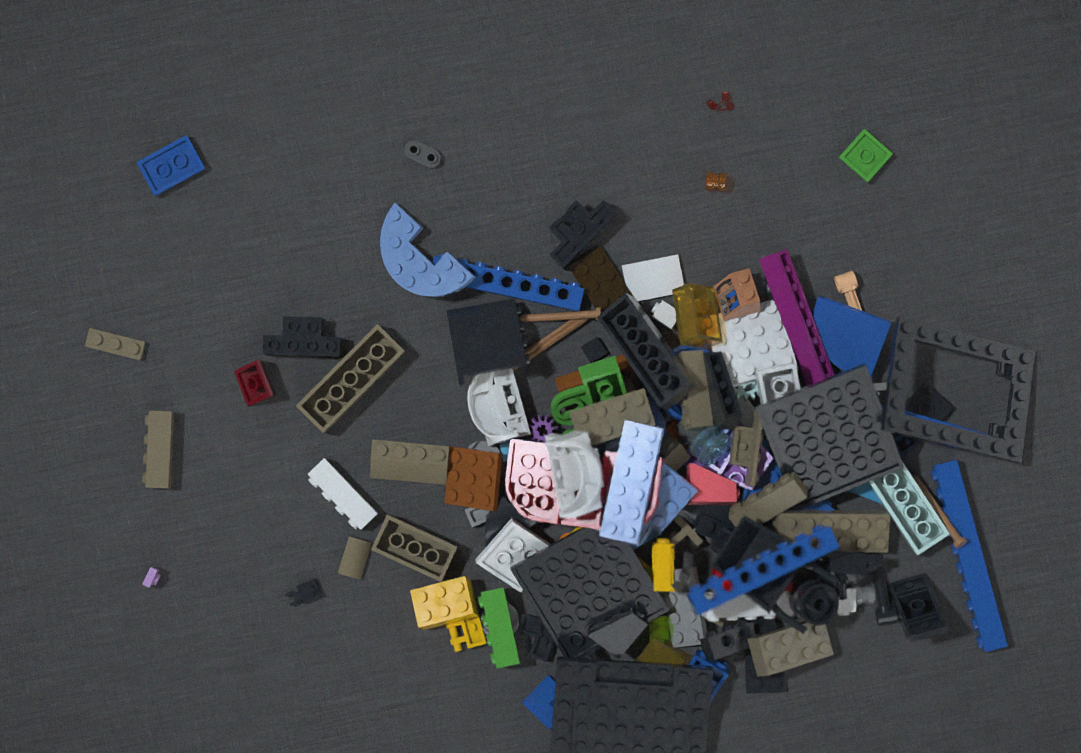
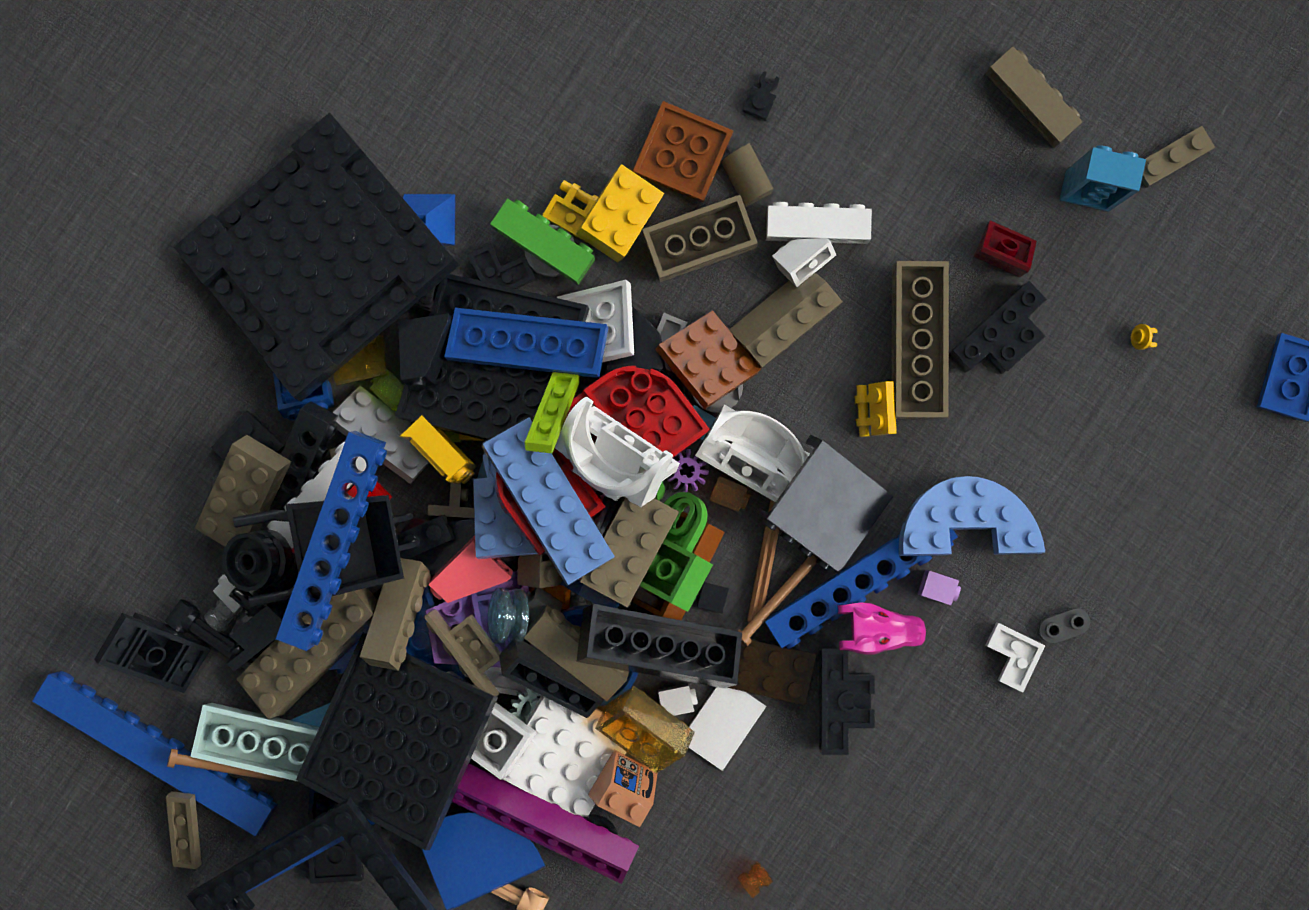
camera: 140 degrees right, 0 degrees up
(173, 369) = (1103, 178): none -> dark azure brick
(229, 265) = (1142, 337): none -> yellow plate
(369, 483) = (803, 258): none -> white slope
(376, 604) = (683, 151): none -> dark orange plate
(406, 363) = (881, 406): none -> yellow plate
(460, 160) = (1021, 652): none -> white plate
(469, 238) = (939, 587): none -> lavender brick
(522, 247) = (880, 629): none -> dark pink animal
(532, 395) = (729, 494): none -> clear orange brick
(561, 579) = (526, 342): none -> blue plate
(584, 526) = (552, 412): none -> lime plate
(992, 499) = (183, 830): none -> dark tan plate

